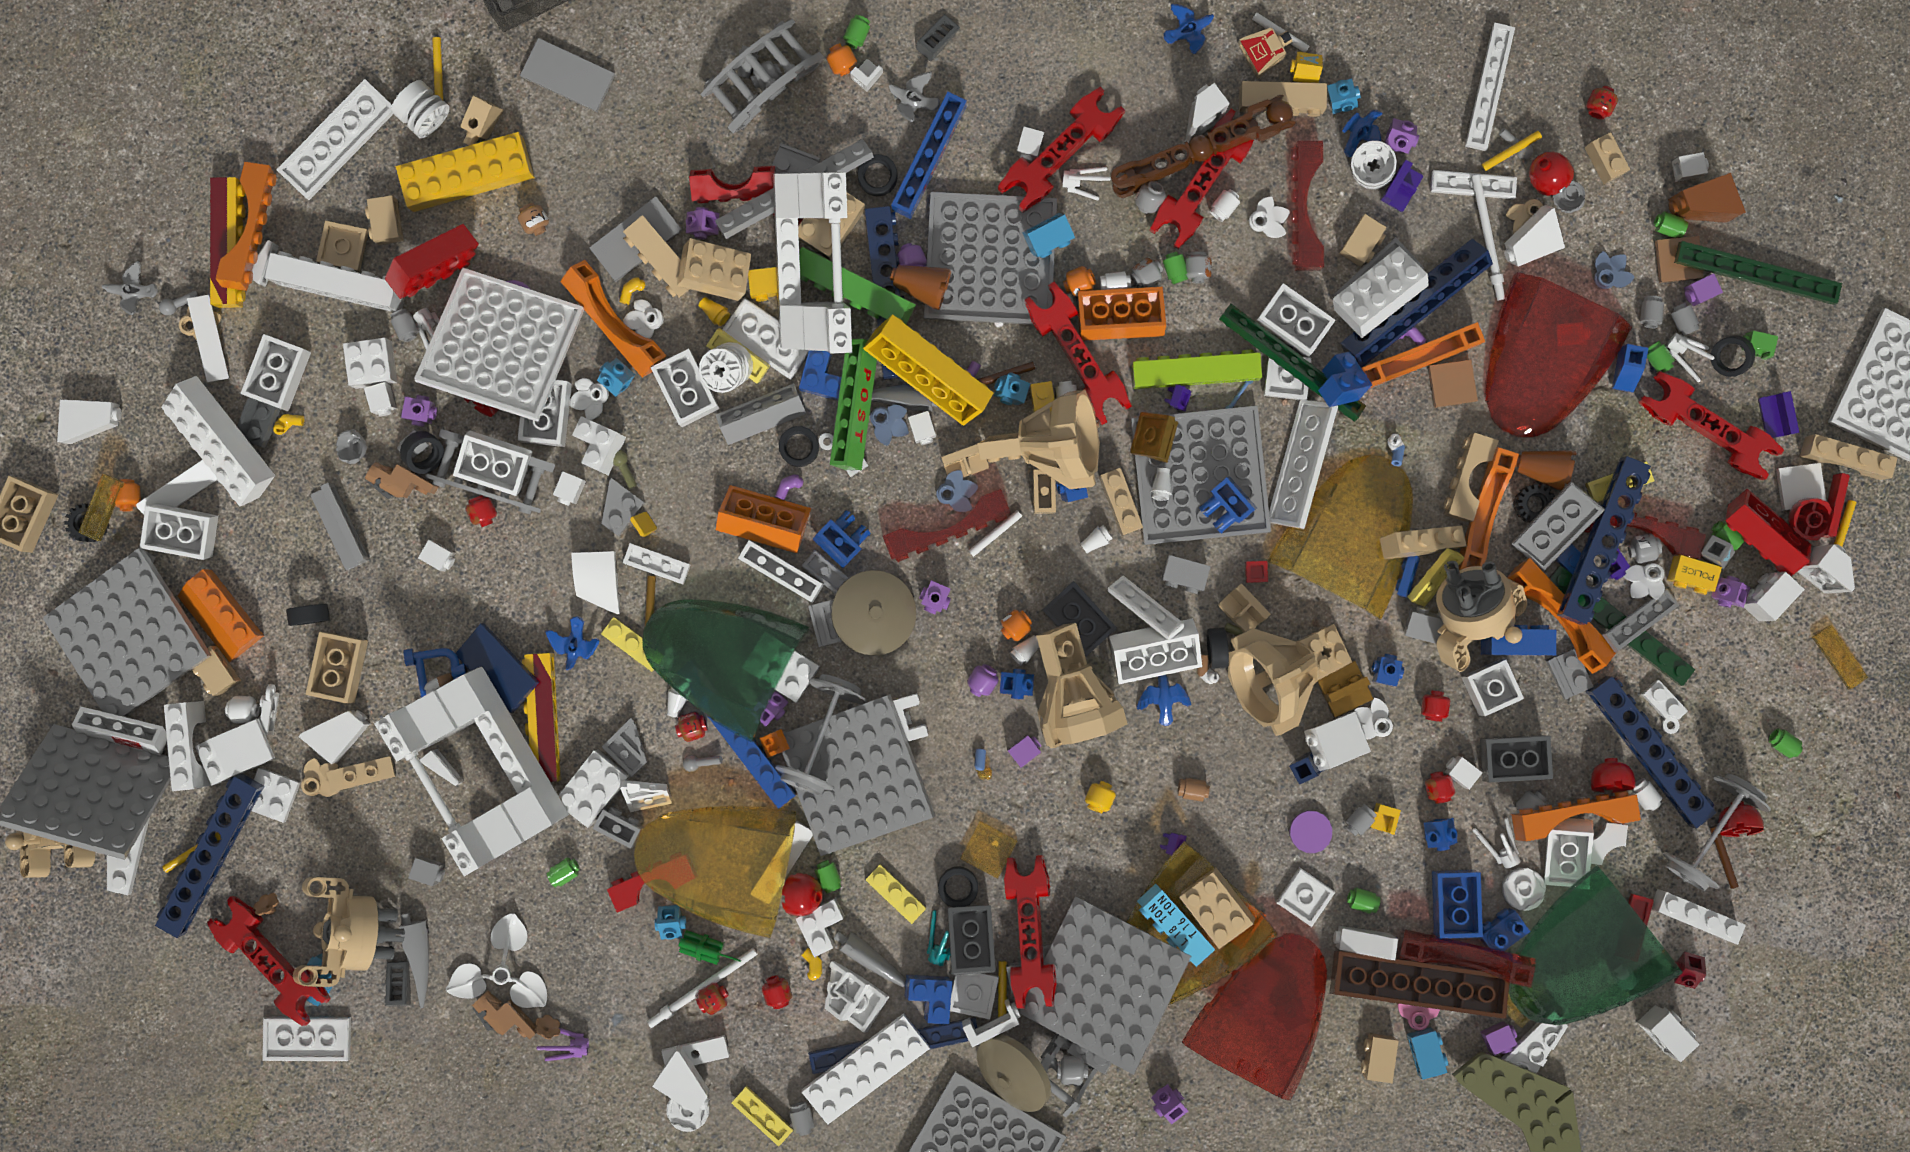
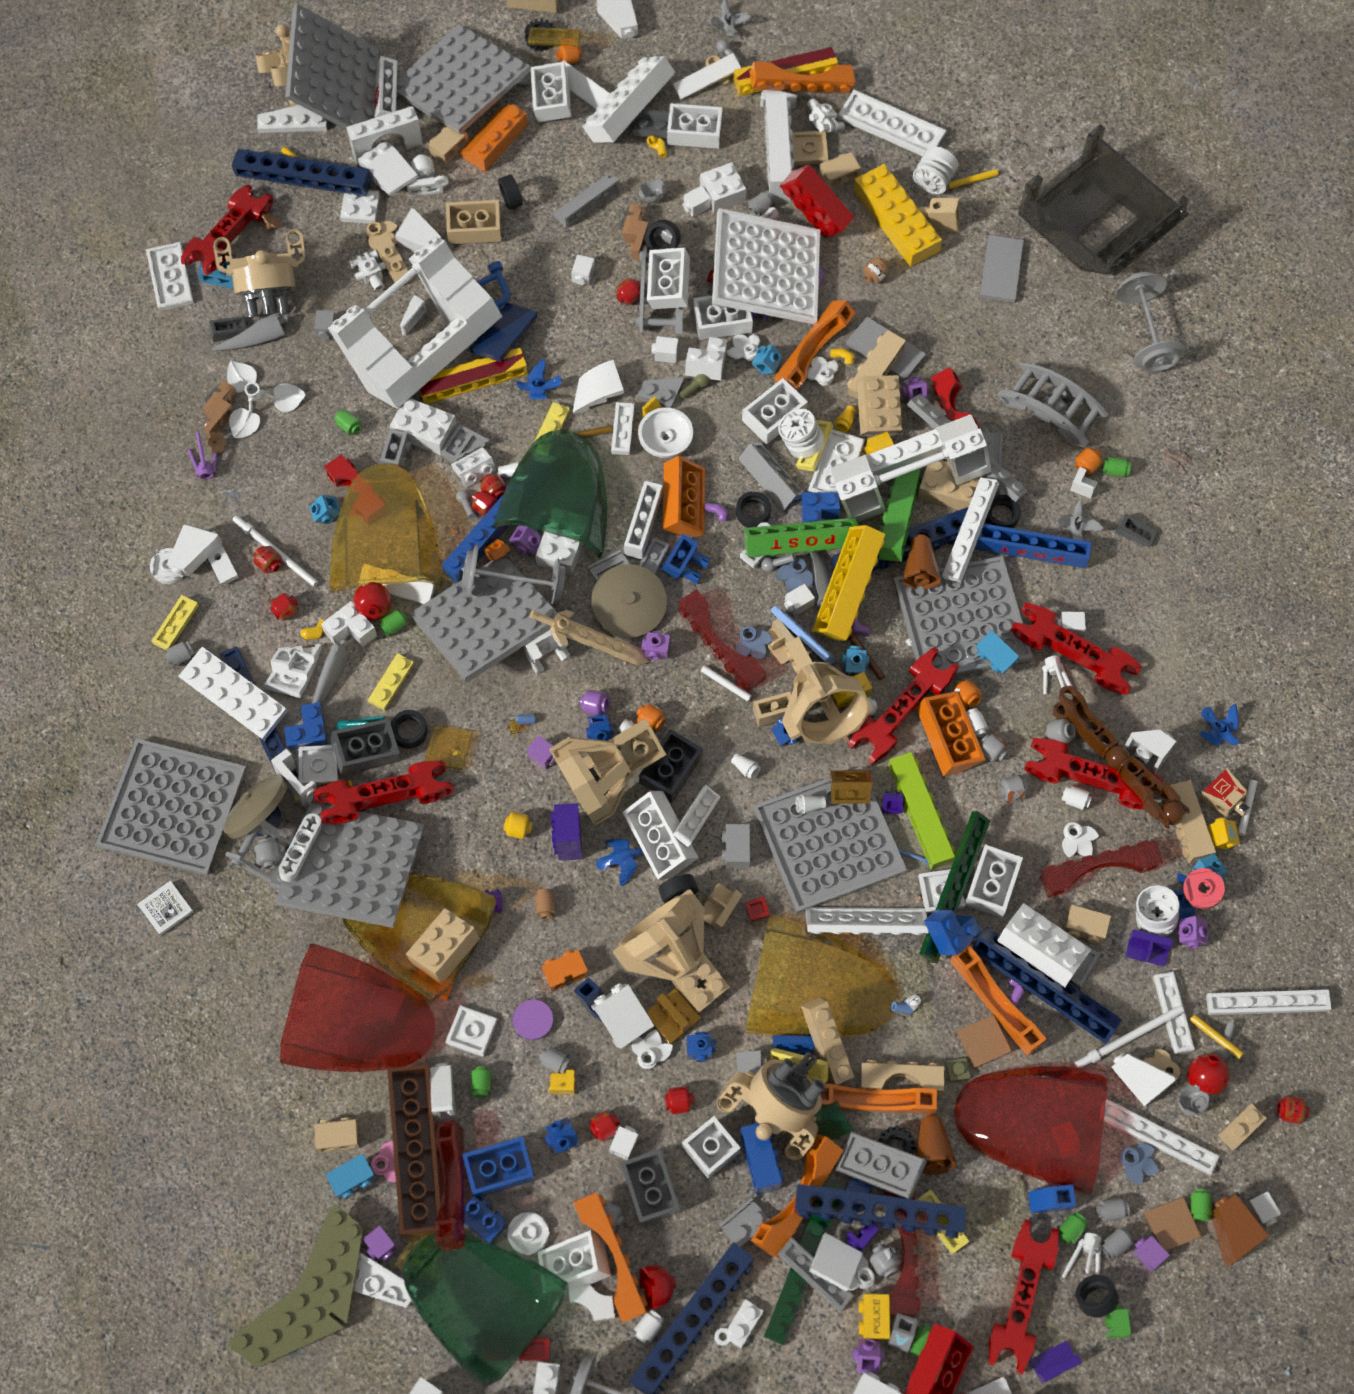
camera: 80 degrees right, 20 degrees down
(306, 216) = (824, 117): none -> white piece
(366, 803) = (369, 270): none -> white piece
(419, 410) = (695, 228): medium lavender brick -> none
(644, 795) = (427, 464): white wing -> none
(659, 742) = (474, 467): none -> white bracket
(664, 515) = (662, 424): none -> white dish
(702, 947) = (309, 541): green piece -> none
(709, 741) = (483, 502): none -> red head
(870, 447) = (769, 564): none -> light grey bar
(897, 217) = (970, 529): none -> white plate
(908, 679) = (563, 627): none -> tan sword
(912, 255) = (942, 553): medium lavender head -> none
(969, 435) = (803, 635): none -> light blue tile
(1079, 1033) = (297, 846): none -> white beam
(1120, 501) = (784, 775): tan brick -> none
(1130, 748) = (566, 832): none -> dark purple brick
(1169, 1103) = (254, 953): medium lavender brick -> none
(1175, 267) = (1006, 769): bright green brick -> none
(1175, 924) = (418, 912): medium azure brick -> none
(1206, 673) = (652, 890): arm -> none
(1233, 499) = (814, 865): blue brick -> none
(1269, 791) = (564, 969): none -> orange brick
(1375, 120) = (1198, 898): none -> coral plate
(1474, 418) = (957, 1070): none -> olive plate
(1502, 557) = (832, 1121): none -> clear green piece
(1509, 854) = (555, 1206): white plant -> none
(1594, 240) = (1160, 1137): none -> white tile
(1636, 597) = (835, 1262): none -> white tile
(1758, 273) = (1185, 1303): dark green plate -> none

